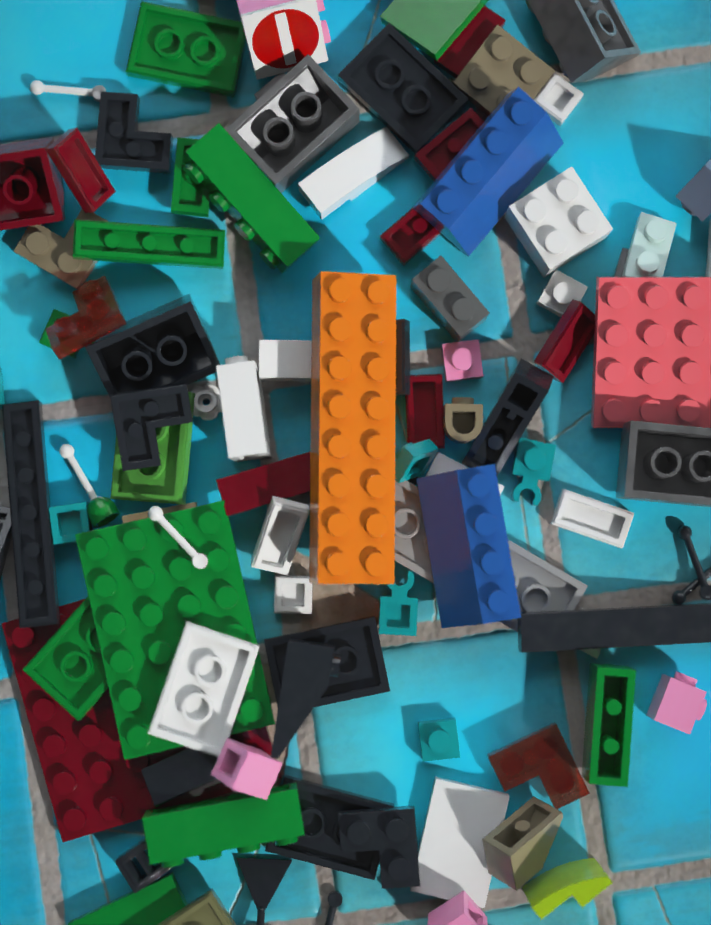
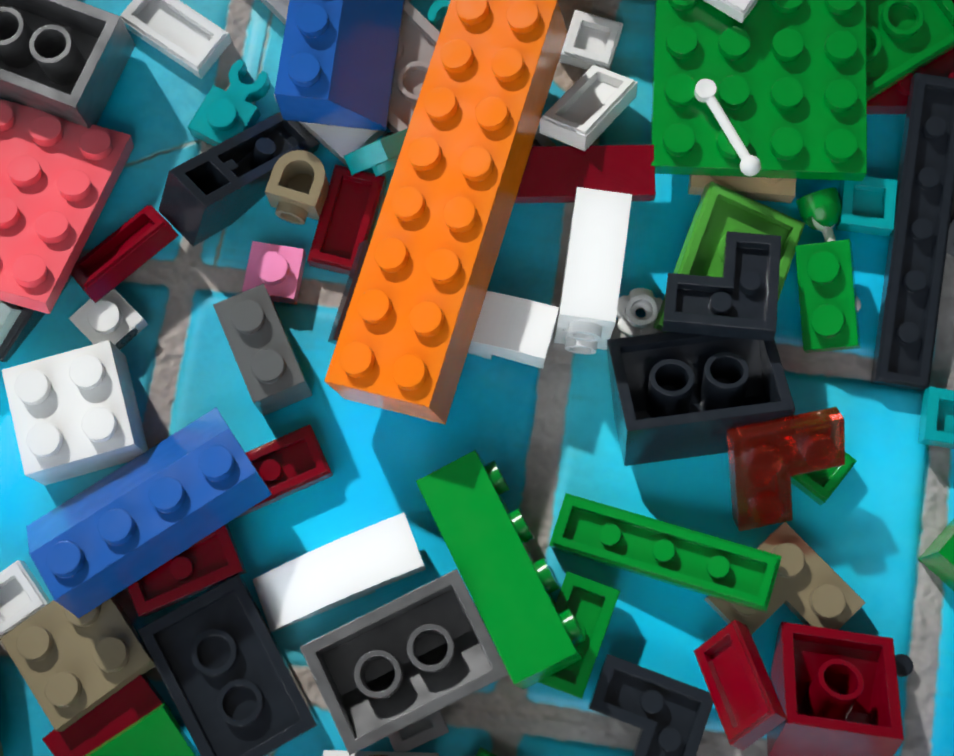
camera: 165 degrees left, 10 degrees down
(83, 448) = (827, 296): none -> green plate

